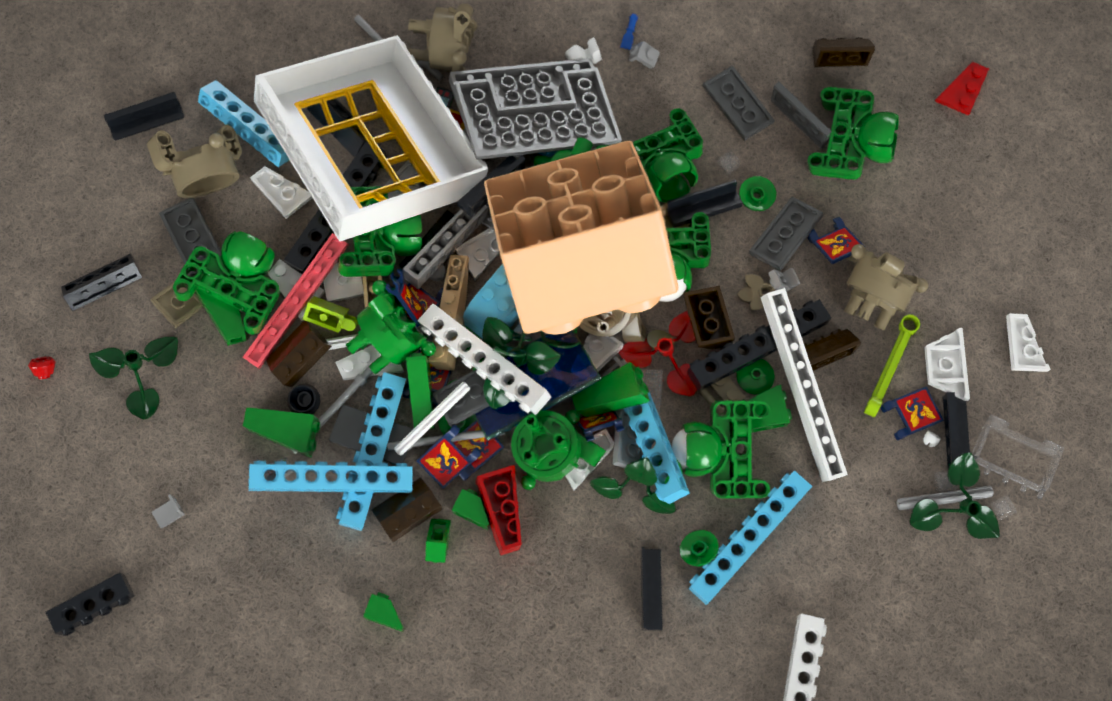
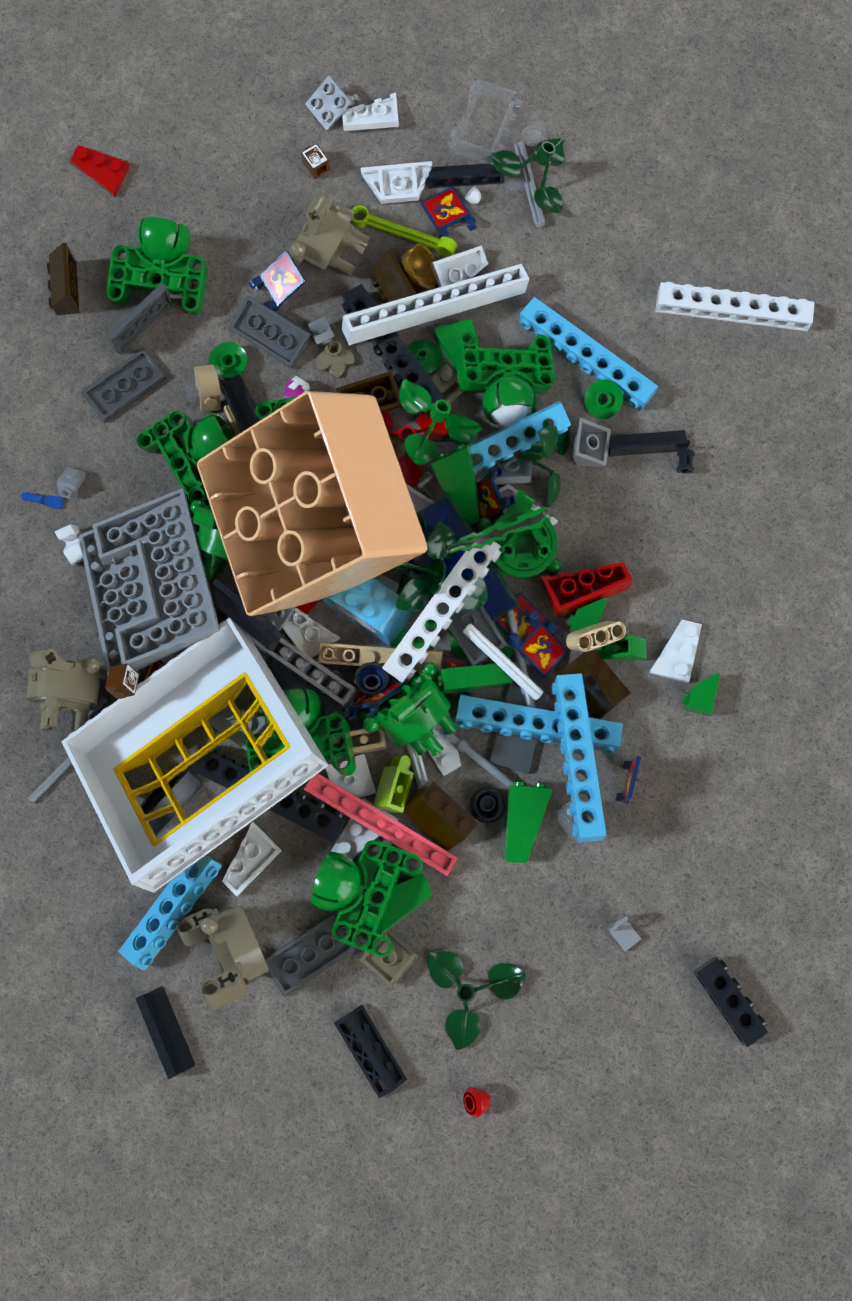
camera: 90 degrees left, 5 degrees up
(294, 523) = (632, 767): none -> dark blue flag
(425, 294) = (371, 679): none -> dark blue hat
(429, 596) = (679, 653): none -> white wing
(441, 81) = (122, 681): none -> reddish brown brick
(445, 517) = (596, 636): none -> tan beam
(554, 435) = (499, 531): none -> green sword
(626, 621) = (685, 461): none -> black bush
(651, 529) = (591, 444): none -> light grey slope
(702, 357) = (416, 398): none -> green plant
(724, 252) = (295, 387): none -> piece
(728, 171) = (208, 387): none -> tan brick
(846, 376) = (417, 267): none -> pearl gold cylinder
(847, 415) = (459, 266): none -> white wing
(970, 285) = (315, 161): none -> reddish brown brick
(1036, 302) = (330, 102): none -> light grey plate

